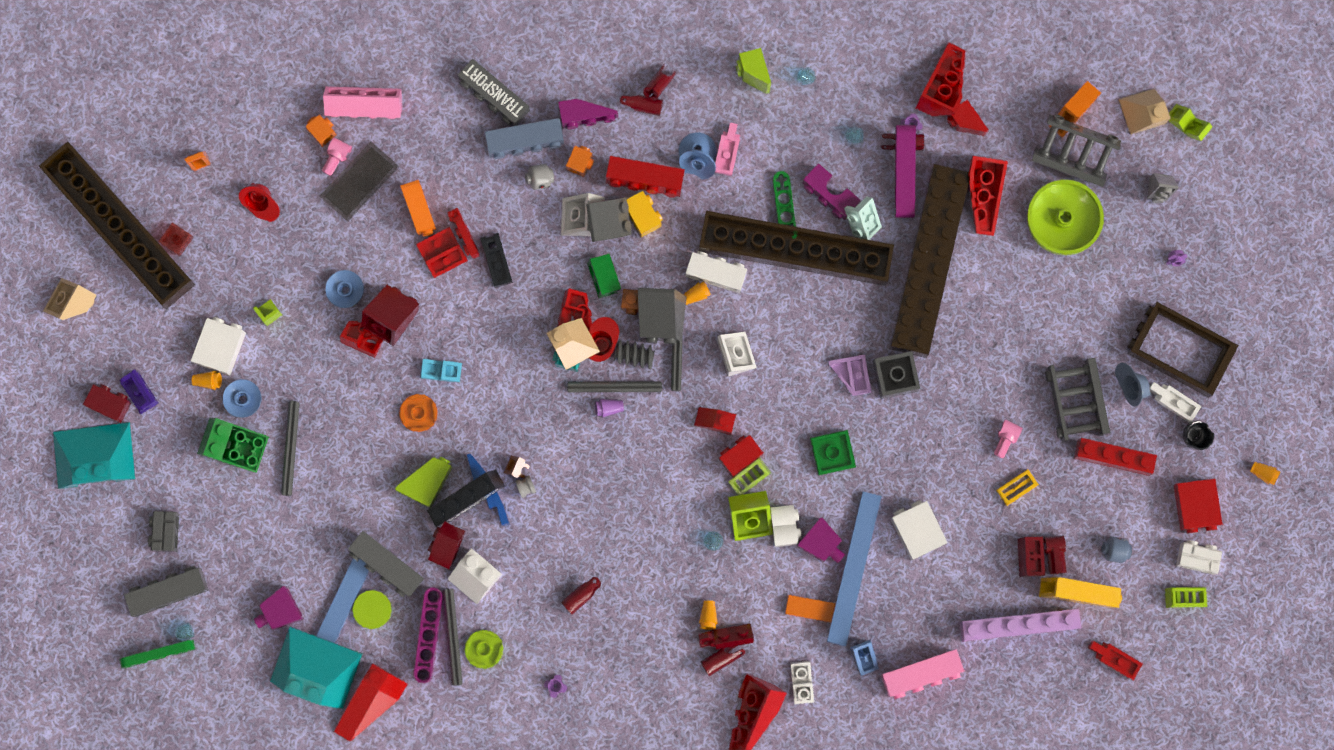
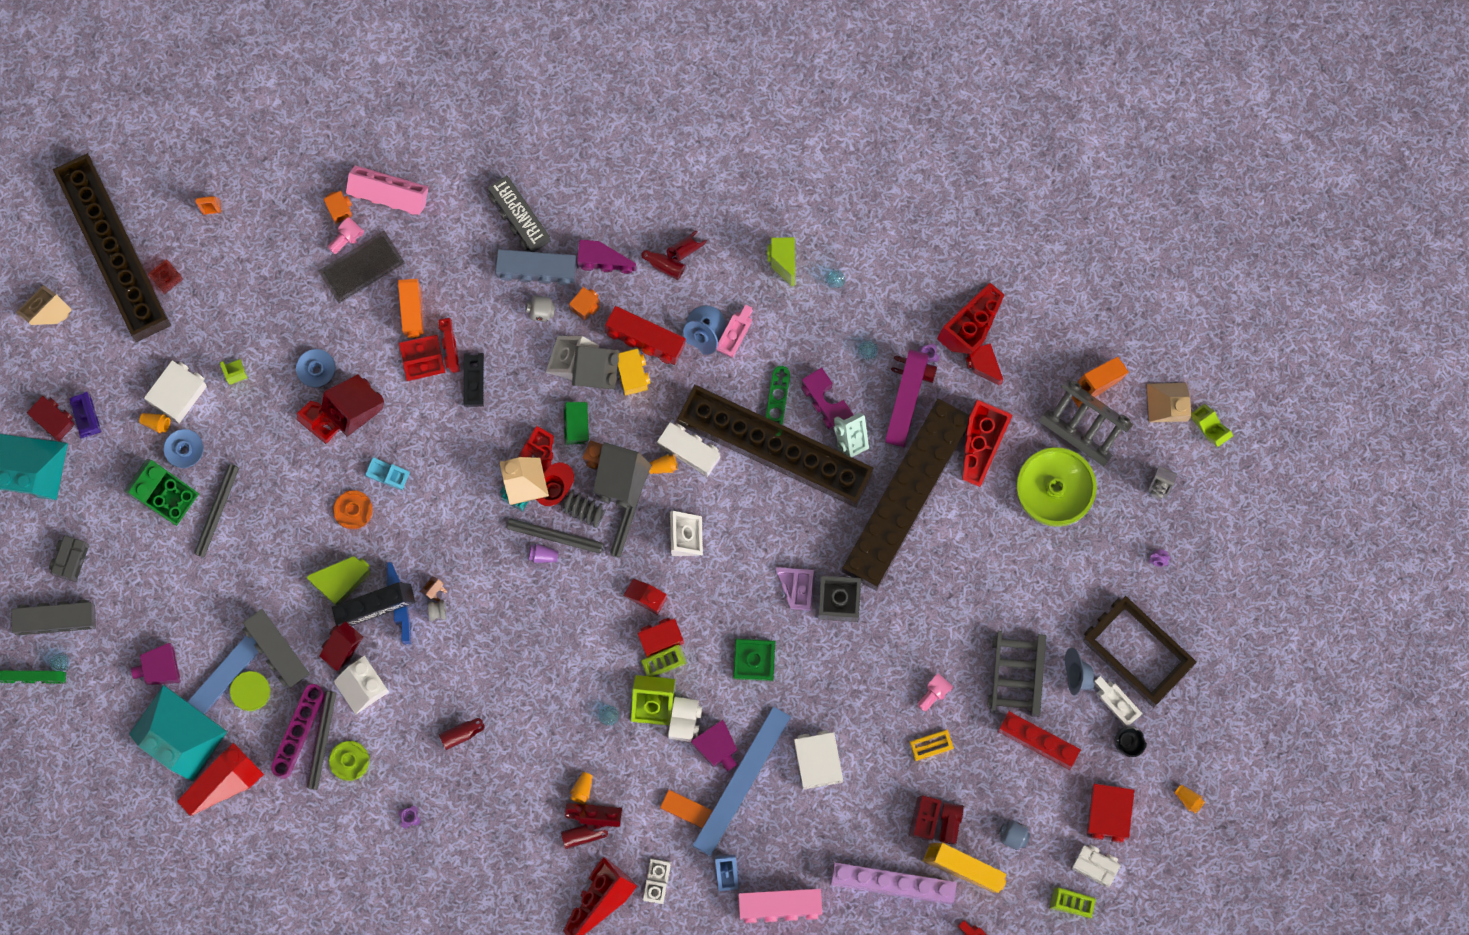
camera: 20 degrees right, 5 degrees down
(259, 202) = (257, 261): red piece -> none

